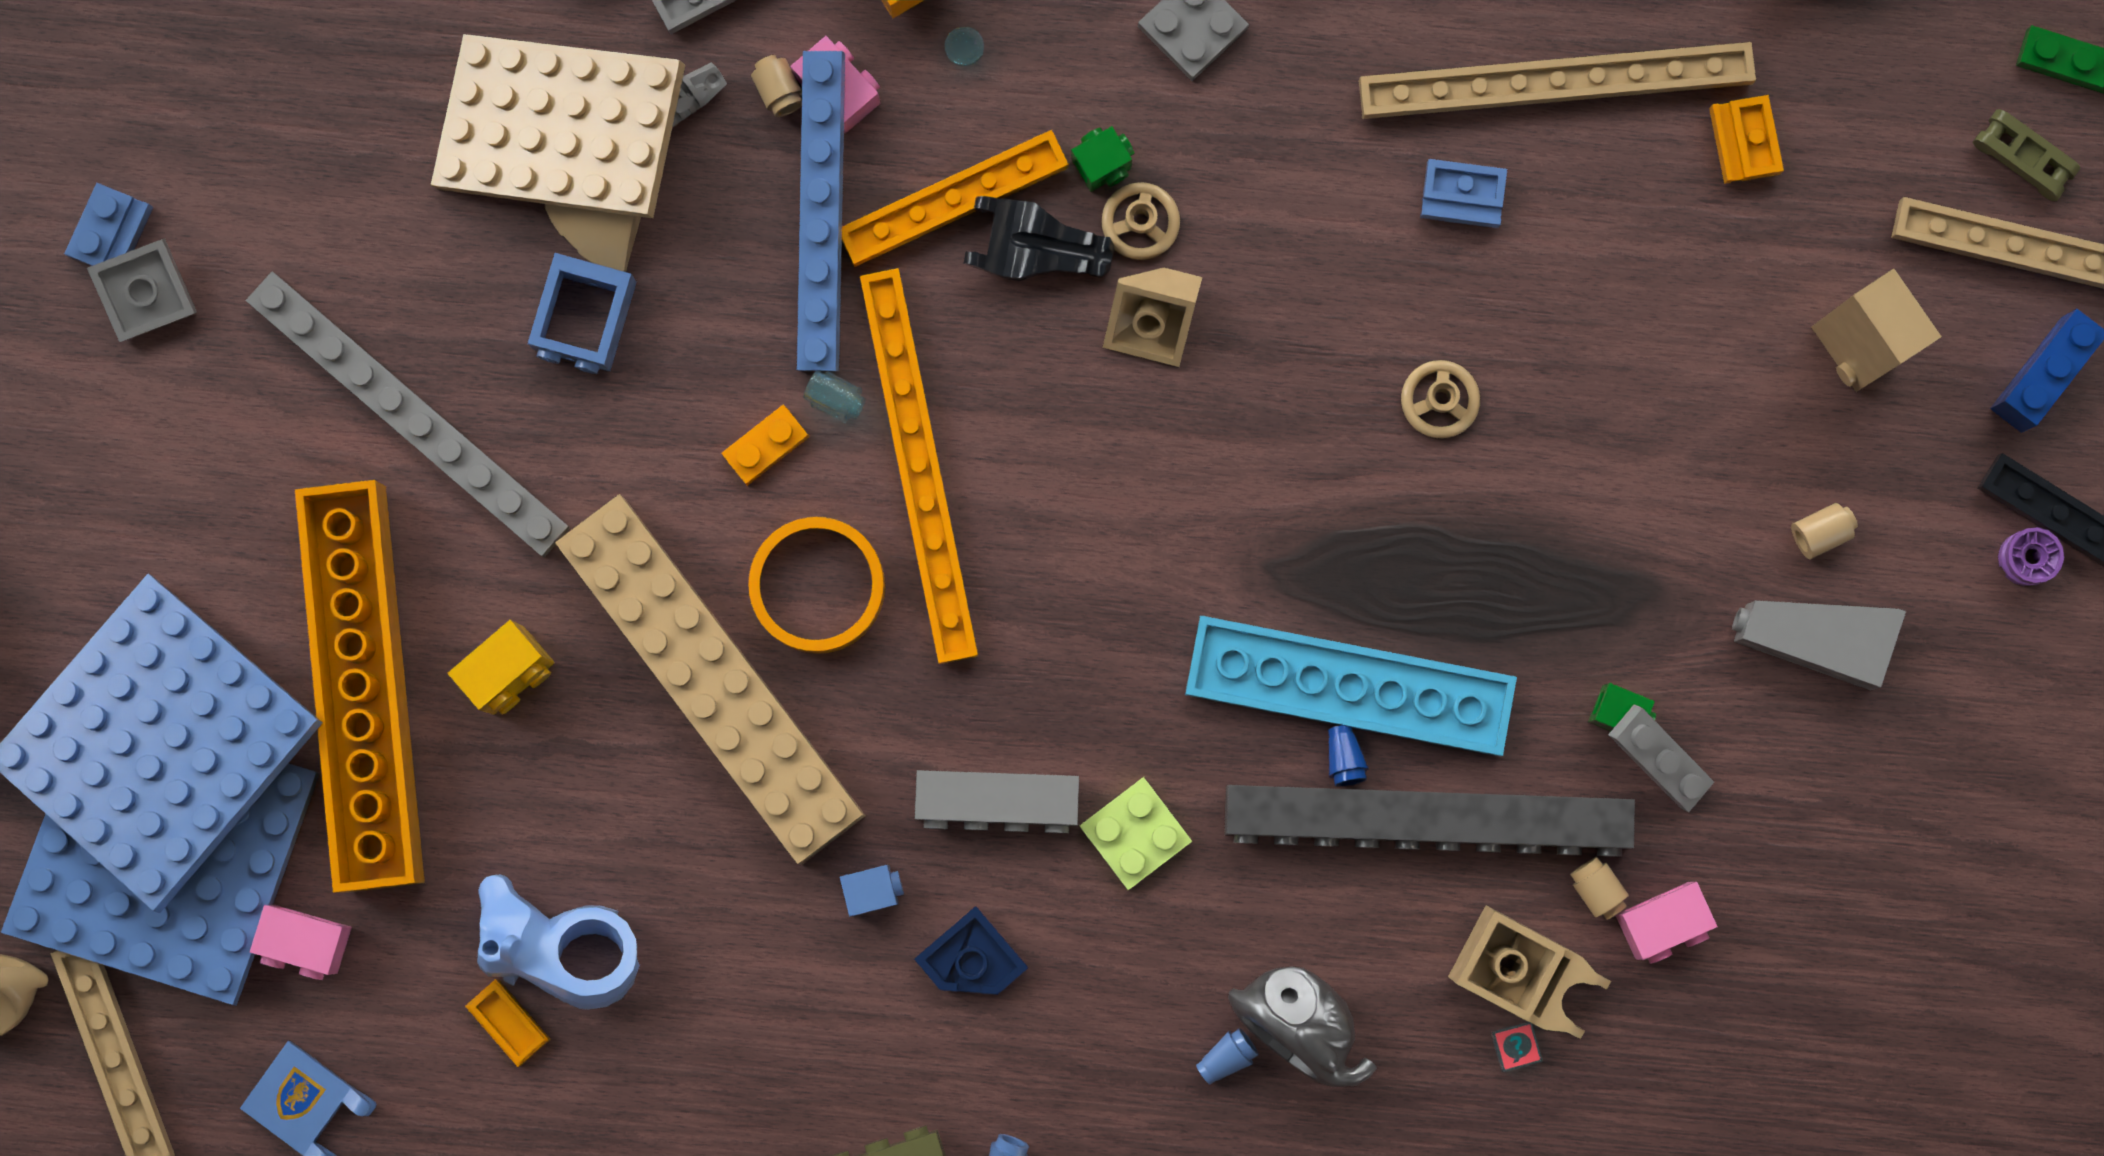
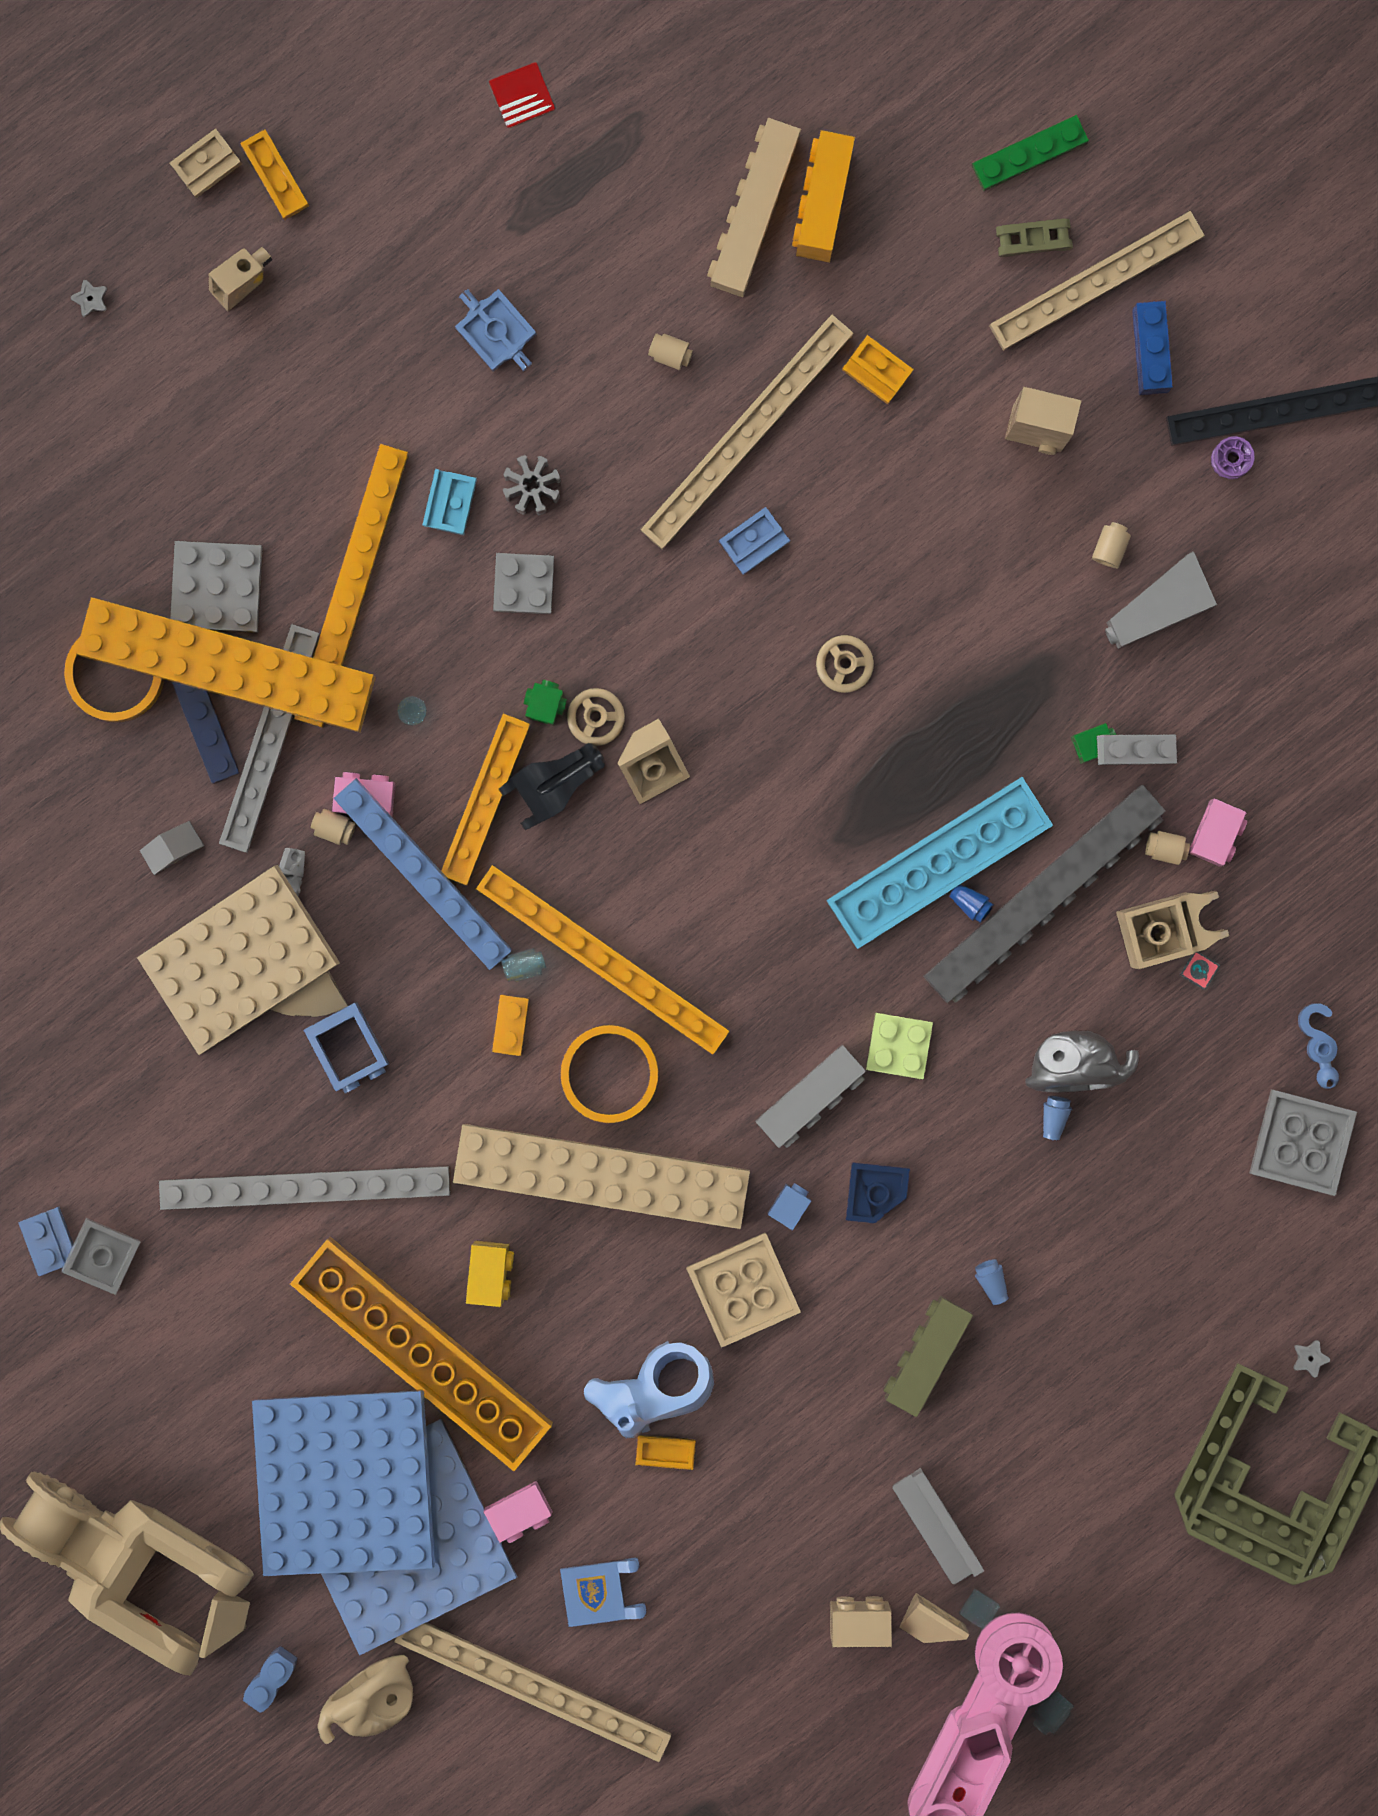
camera: 45 degrees left, 5 degrees up
(743, 931) = (743, 1289): none -> tan plate

